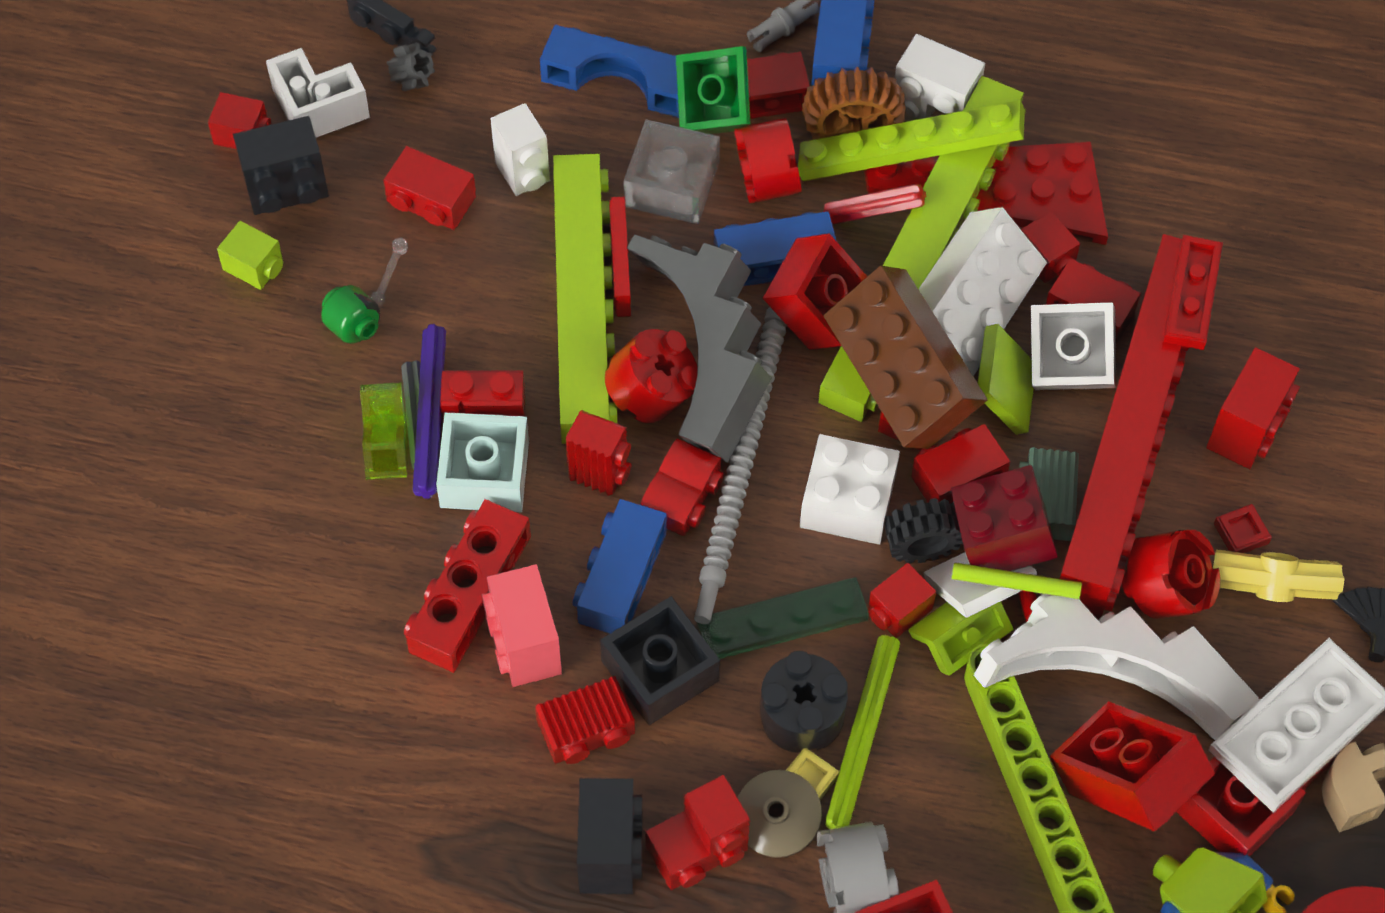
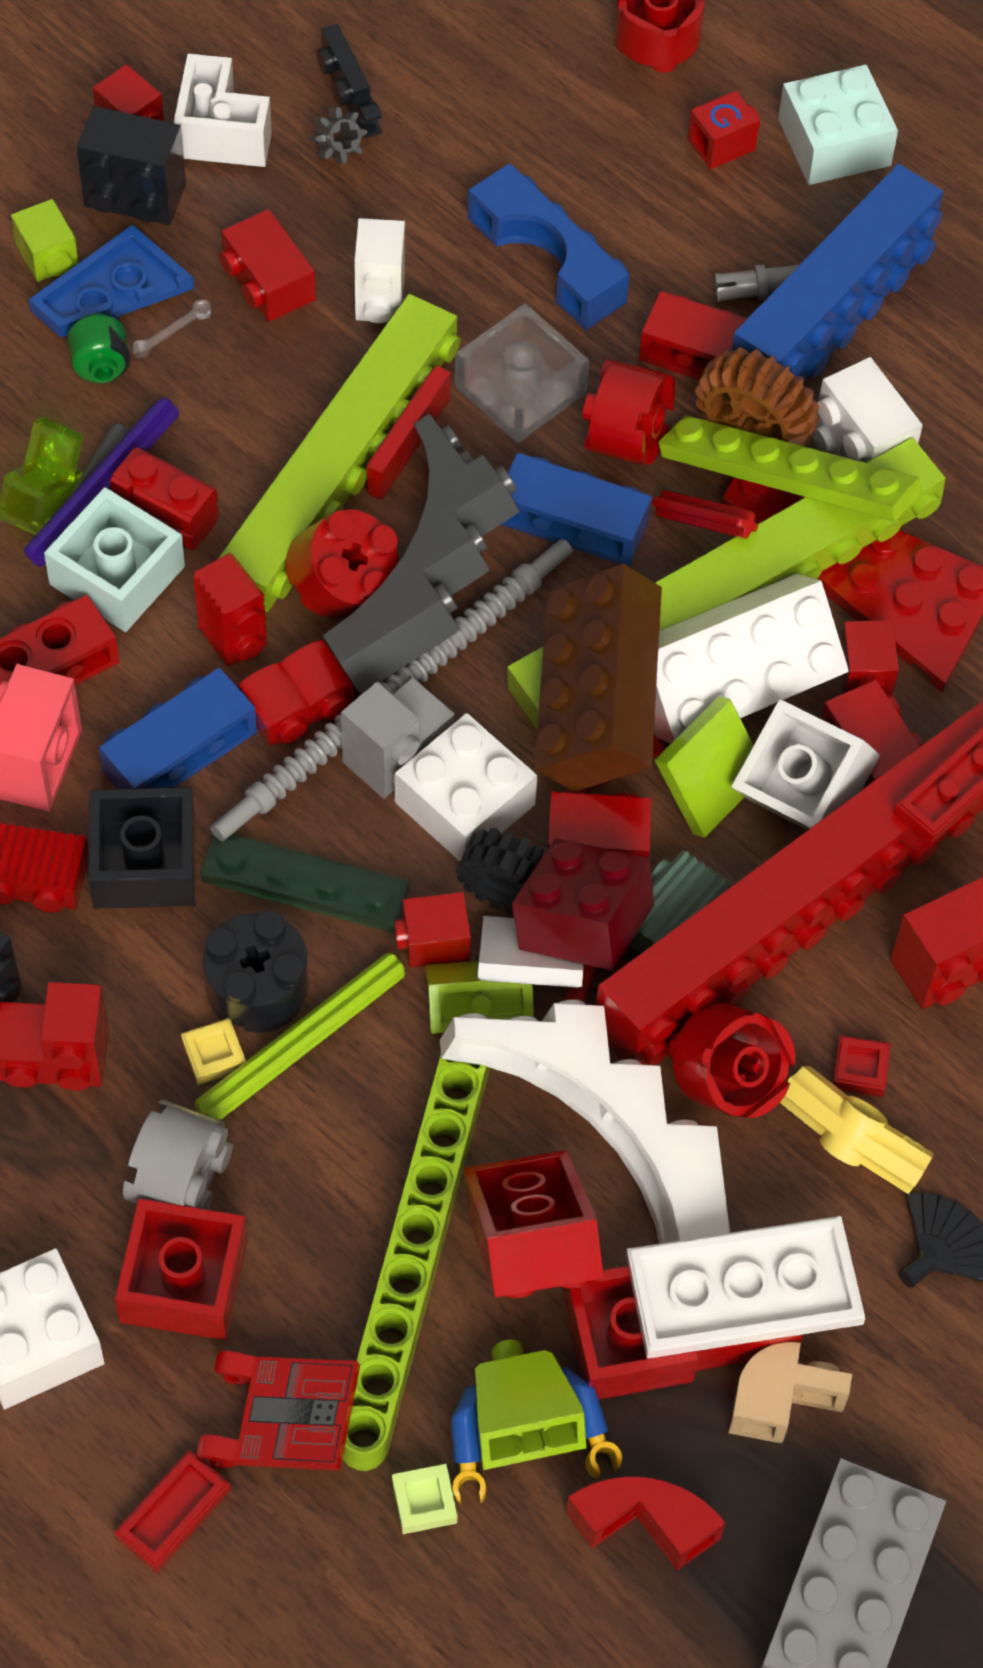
camera: 30 degrees right, 0 degrees up
(322, 260) = (111, 281): none -> blue wing
(713, 90) = (612, 307): green slope -> none
(776, 479) = (389, 730): none -> light grey brick
(796, 826) = (172, 1077): dark tan dish -> none
(809, 284) = (568, 551): red brick -> none
(1016, 580) = (551, 969): lime bar -> none

